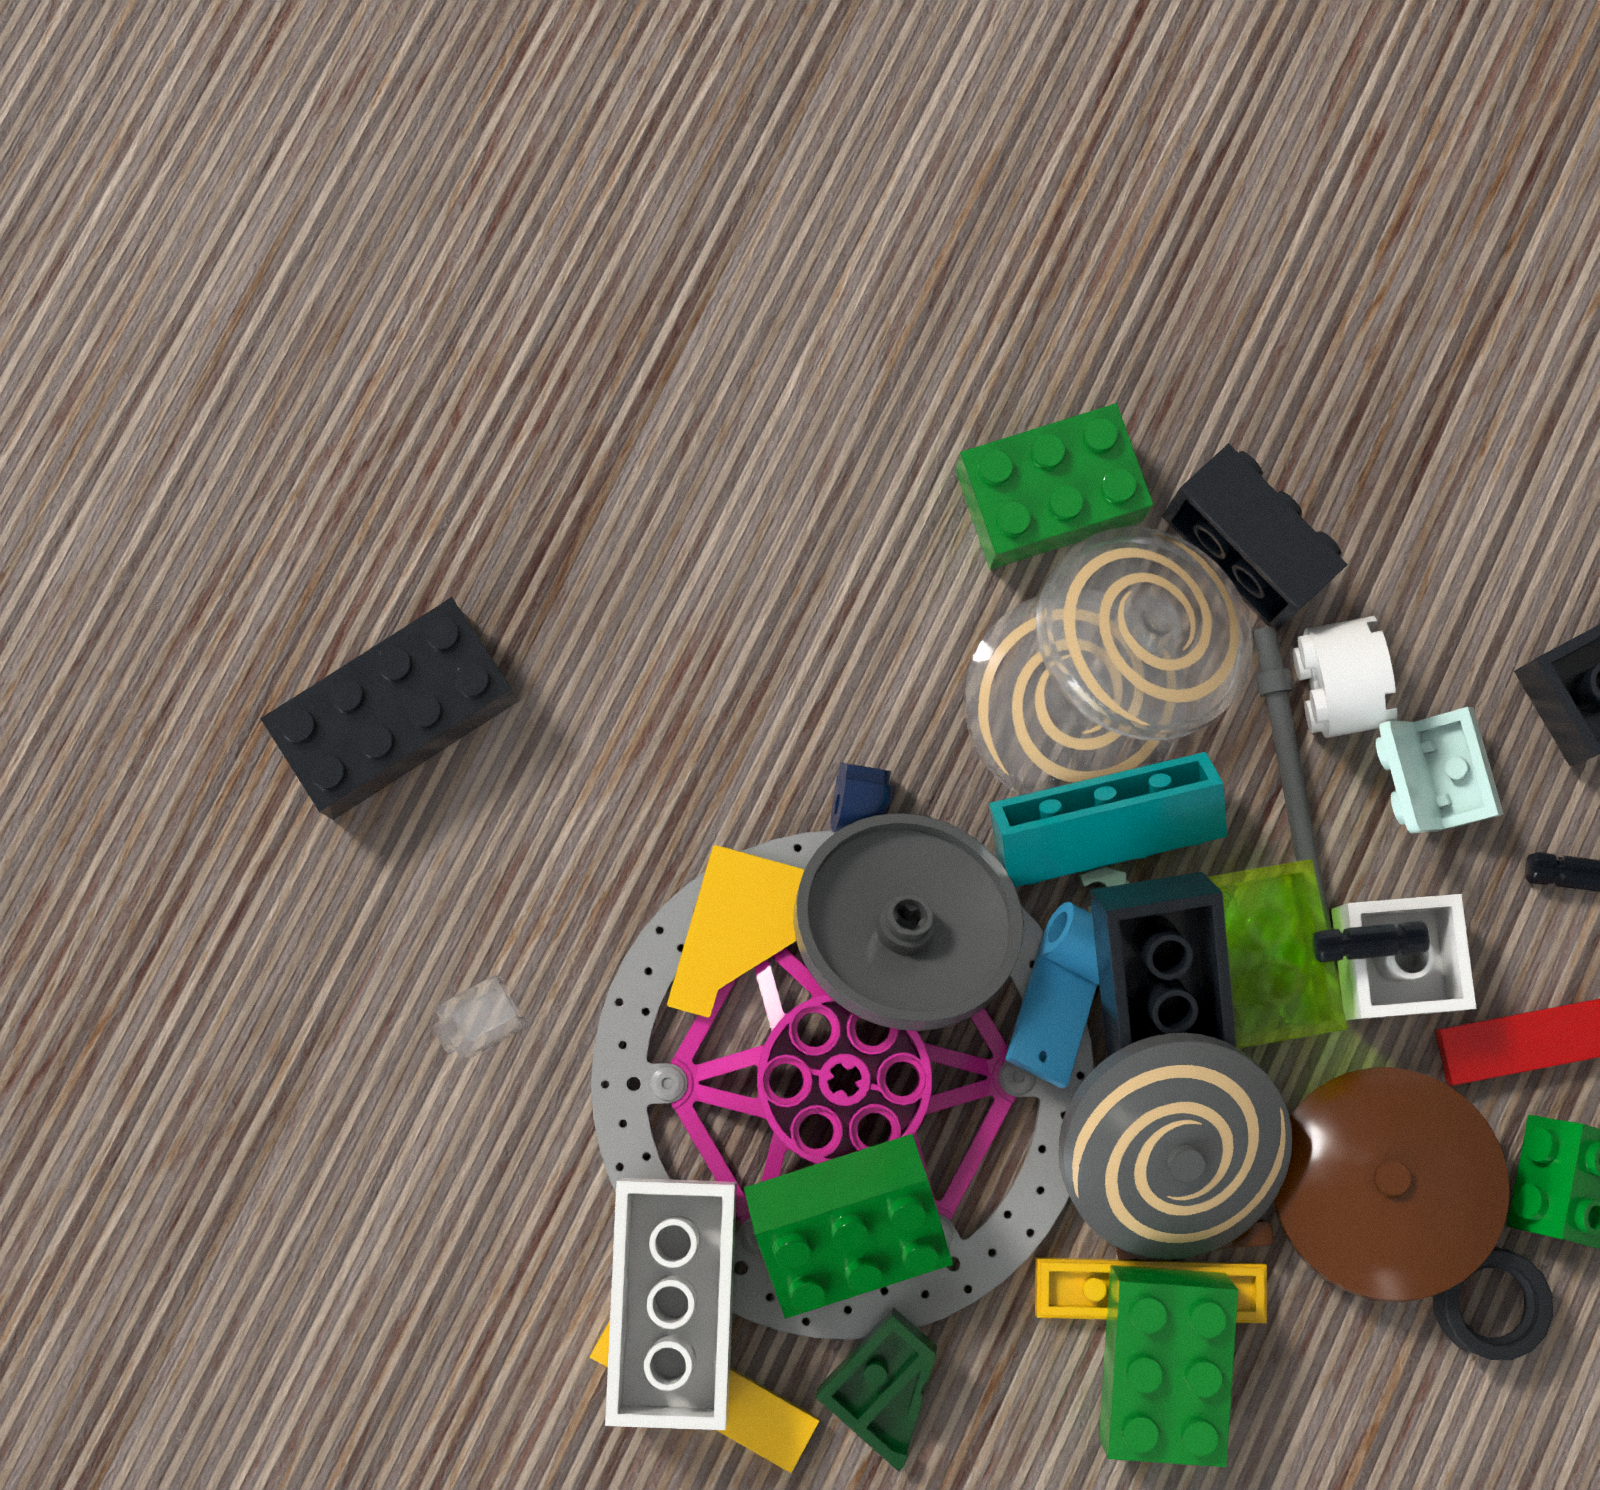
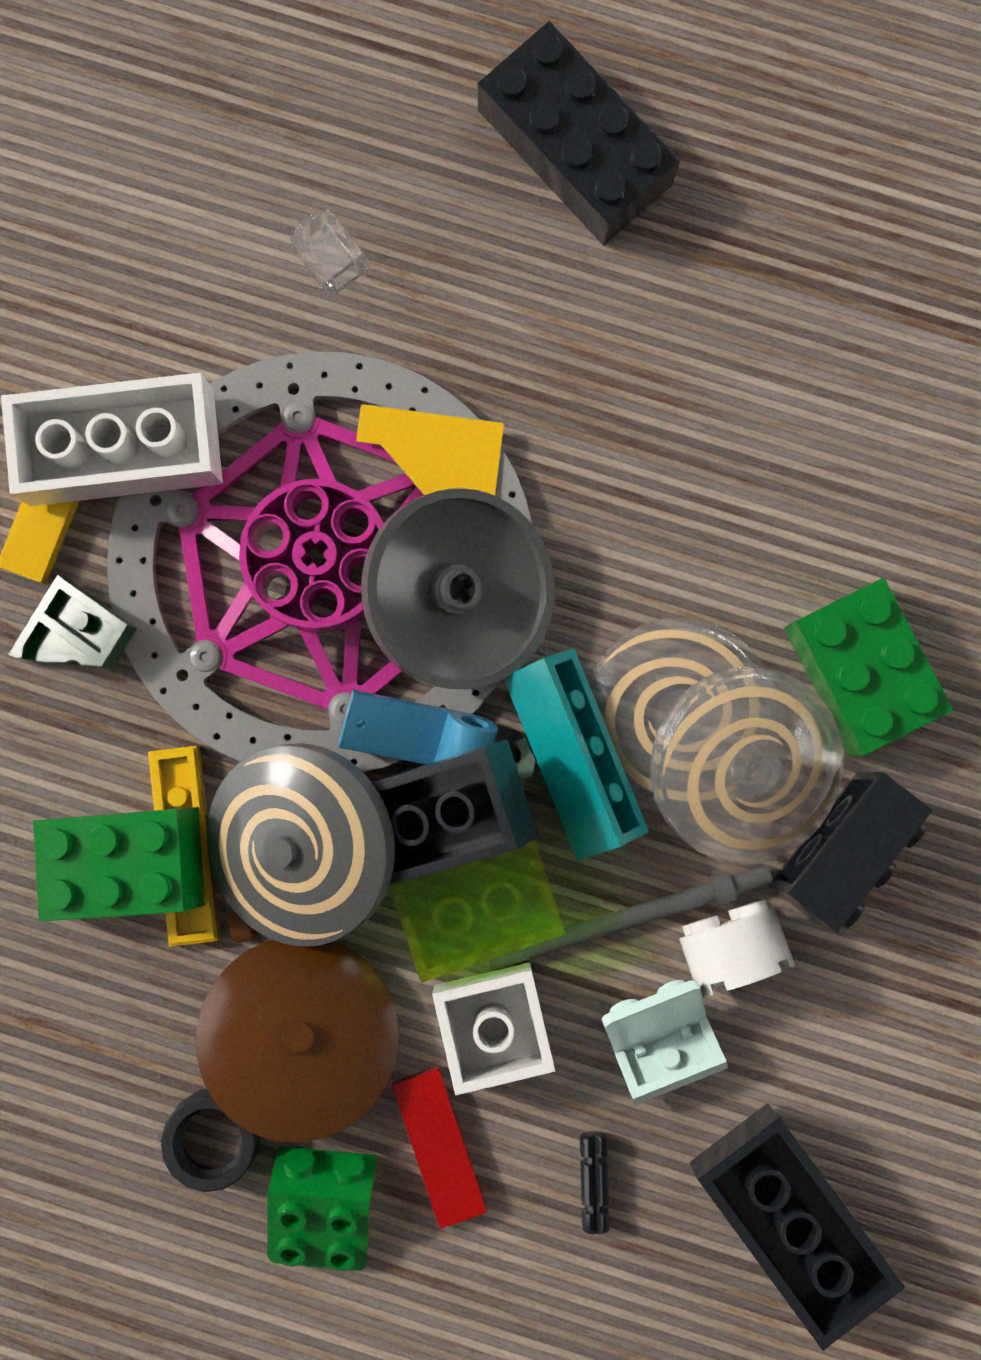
camera: 85 degrees right, 5 degrees up
(848, 1226) = (192, 572): green brick -> none
(860, 794) = (566, 542): dark blue piece -> none
(1370, 941) = (499, 993): black axle -> none

